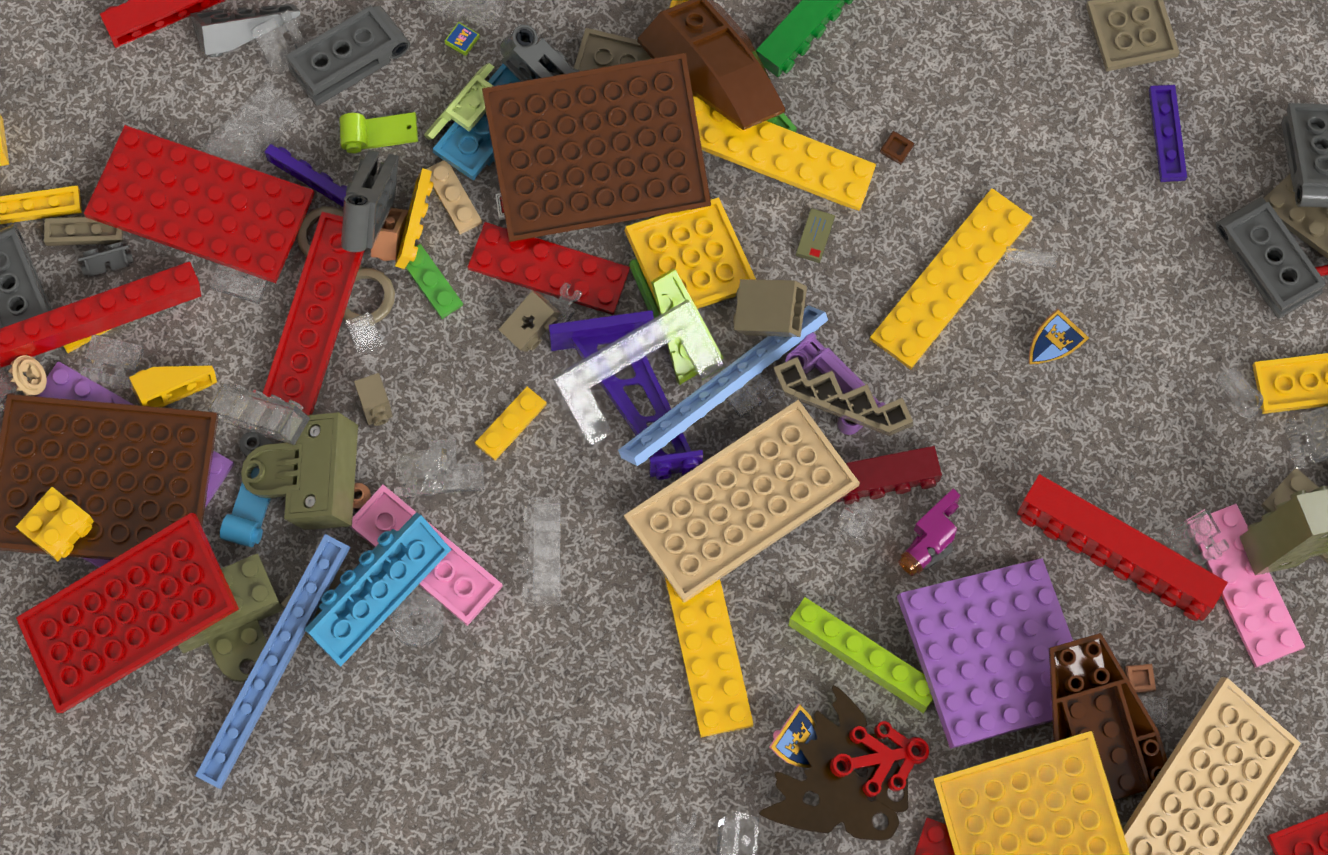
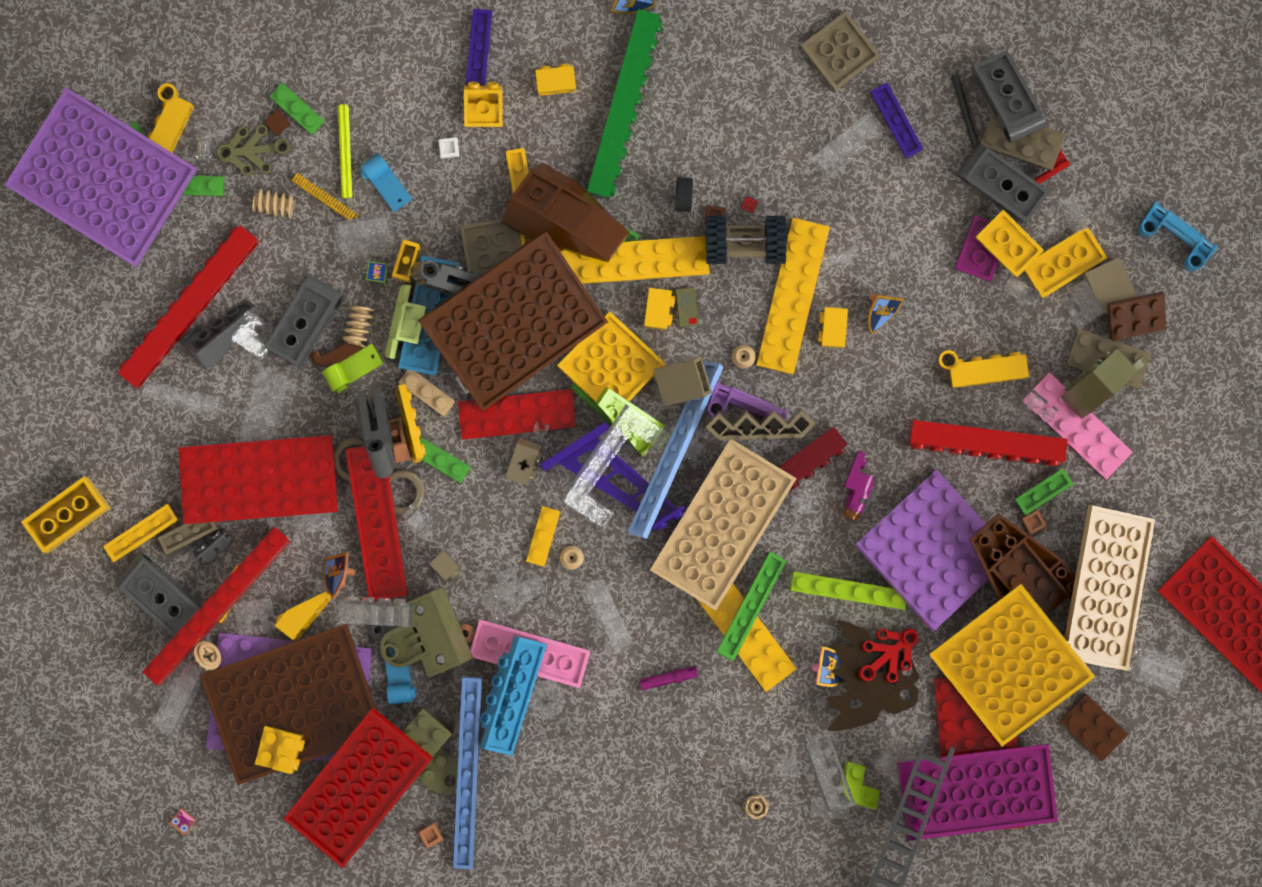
camera: 20 degrees left, 15 degrees up
(159, 76) = (181, 398): none -> clear brick
(188, 724) = (430, 835): none -> nougat tile
(236, 351) = (335, 573): none -> shield
(303, 172) = (316, 422): dark purple plate -> none
(368, 108) = (335, 356): none -> reddish brown piece
(407, 83) = (357, 325): none -> tan piece
(490, 42) = (406, 258): none -> yellow brick
(531, 471) = (576, 561): none -> tan plate
(580, 662) = (668, 678): none -> magenta pin
(730, 617) = (751, 606): none -> bright green plate
(779, 220) = (658, 309): none -> yellow brick
(858, 328) = (740, 362): none -> tan plate
(871, 103) = (684, 192): none -> black tyre
(913, 181) = (746, 240): none -> black plate
(945, 152) = (749, 205): none -> tile
(986, 333) = (833, 327): none -> yellow brick
(1094, 133) = (846, 145): none -> clear brick
(1154, 465) = (985, 371): none -> yellow hinge
(1168, 645) = (1043, 491): none -> bright green plate
(1212, 322) = (974, 257): none -> magenta plate
(1249, 326) = (1009, 243): none -> yellow plate
(1257, 156) = (965, 110): none -> pearl dark grey bar

